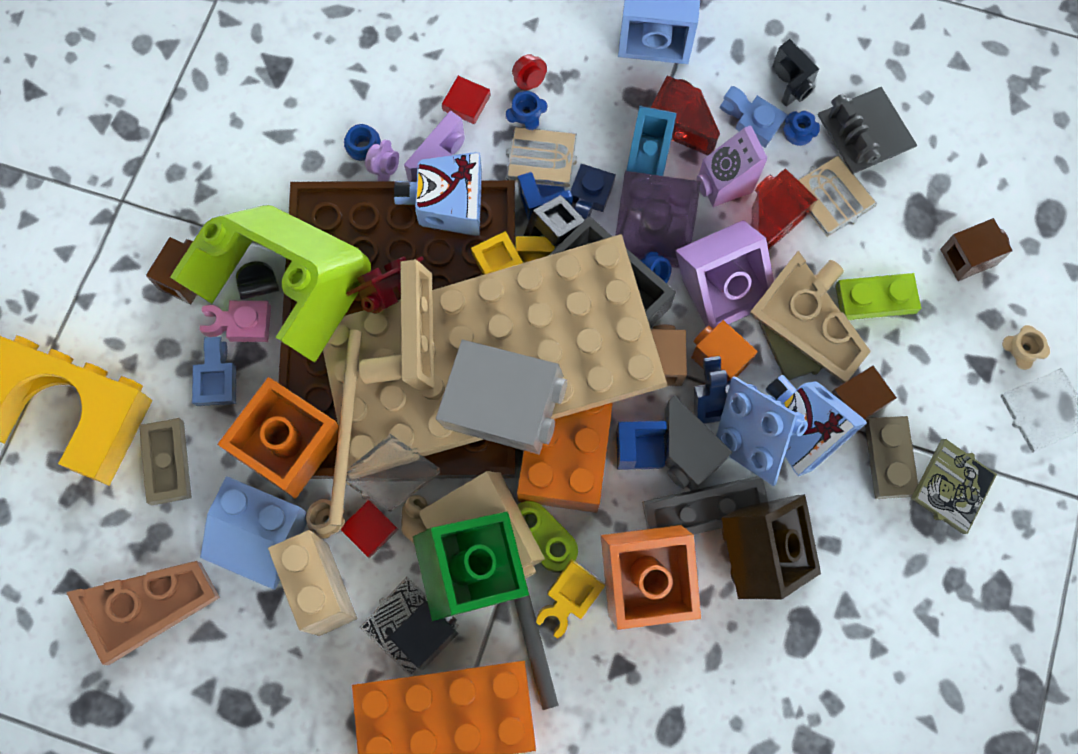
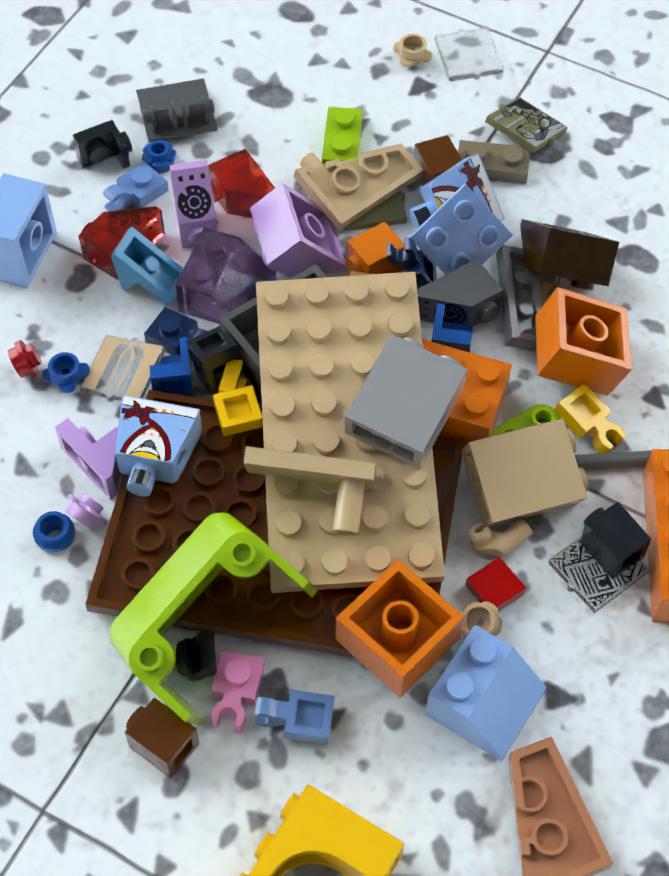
camera: 80 degrees left, 15 degrees down
(165, 461) = (389, 779): dark tan plate -> none
(312, 583) = (560, 618): tan brick -> none
(345, 427) = (386, 560): tan axle -> none
(379, 289) = (247, 502): dark red hinge -> none
(390, 473) = (450, 540): clear piece -> none
(466, 99) = (33, 426): red tile -> none
(470, 565) = (562, 471): green slope -> none
(838, 194) = (232, 139): piece -> none
(976, 249) = (318, 59): reddish brown brick -> none

